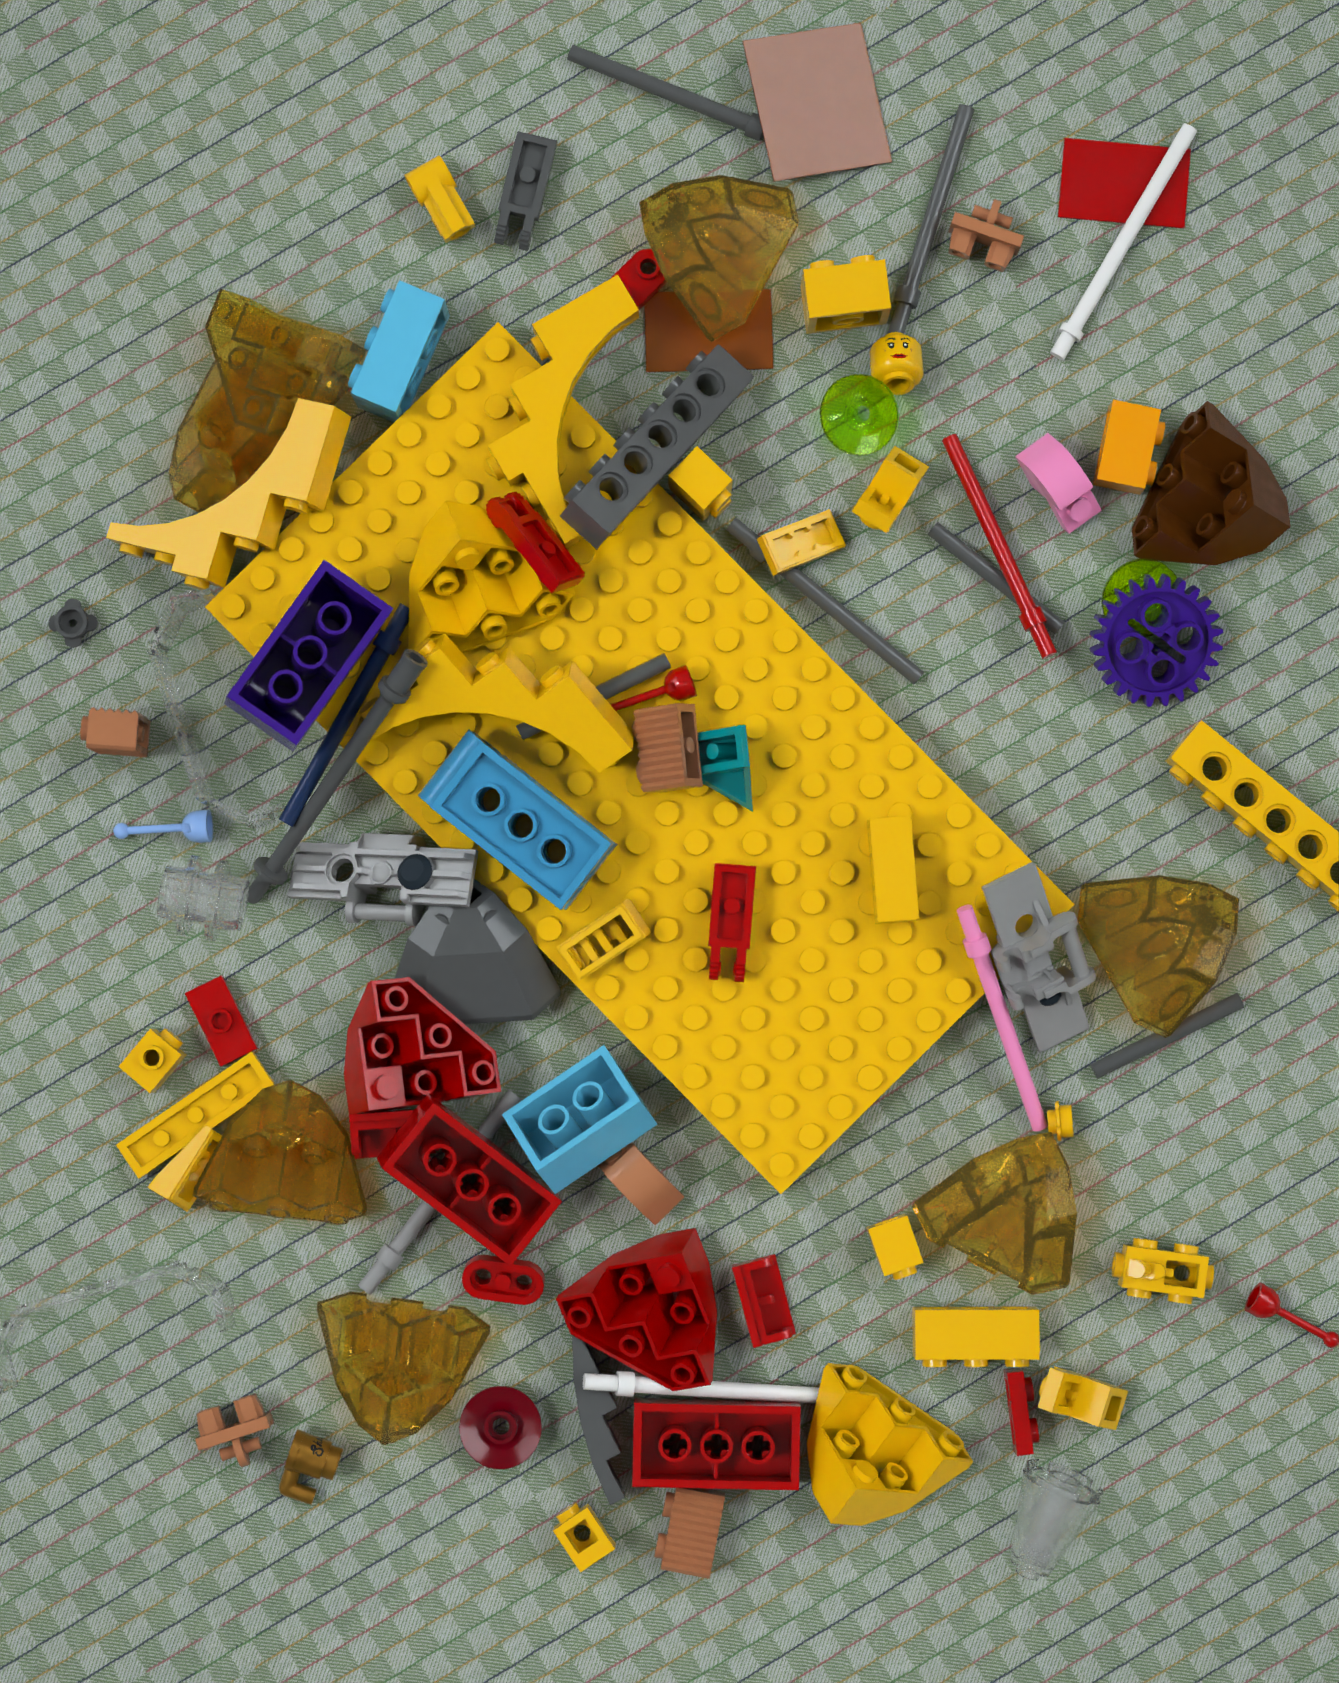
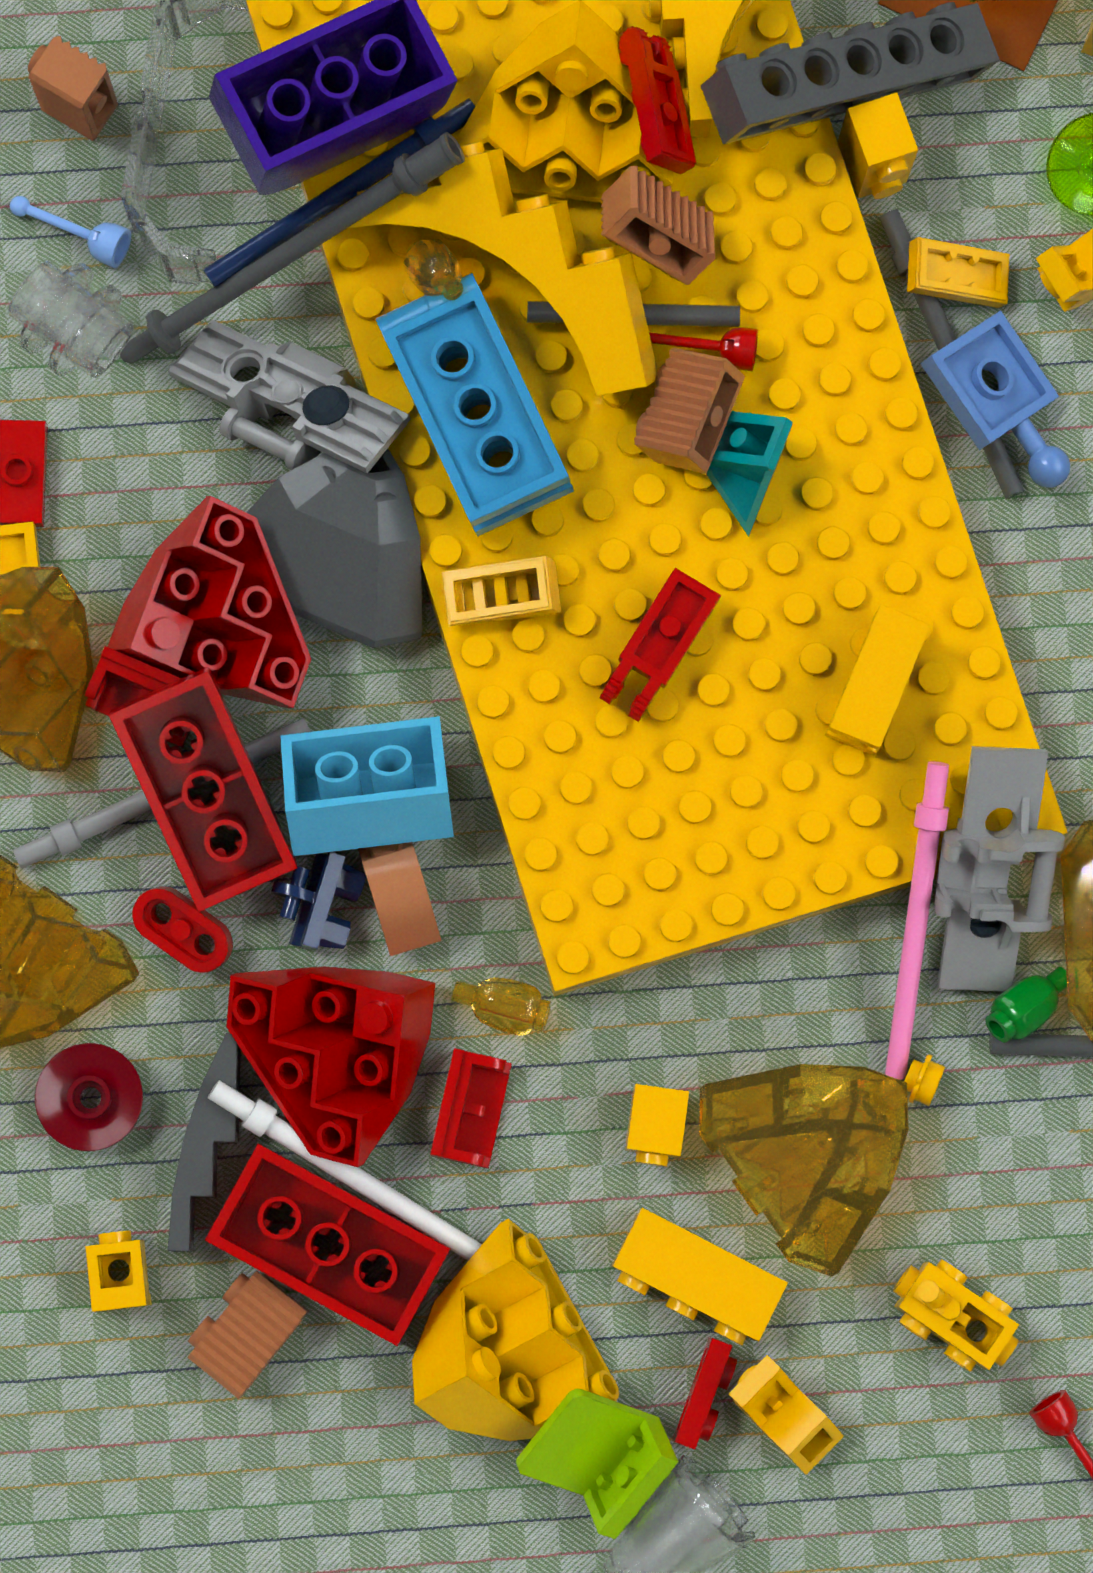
camera: 20 degrees right, 5 degrees down
(441, 740) = (434, 269): none -> clear yellow plant
(581, 630) = (658, 225): none -> nougat brick
(581, 1216) = (327, 879): none -> dark blue hips
(750, 1217) = (505, 1004): none -> clear yellow plant
(888, 608) = (991, 413): none -> medium blue plate
(975, 1487) = (601, 1452): none -> lime bracket
(1105, 1034) = (1026, 1005): none -> green plant

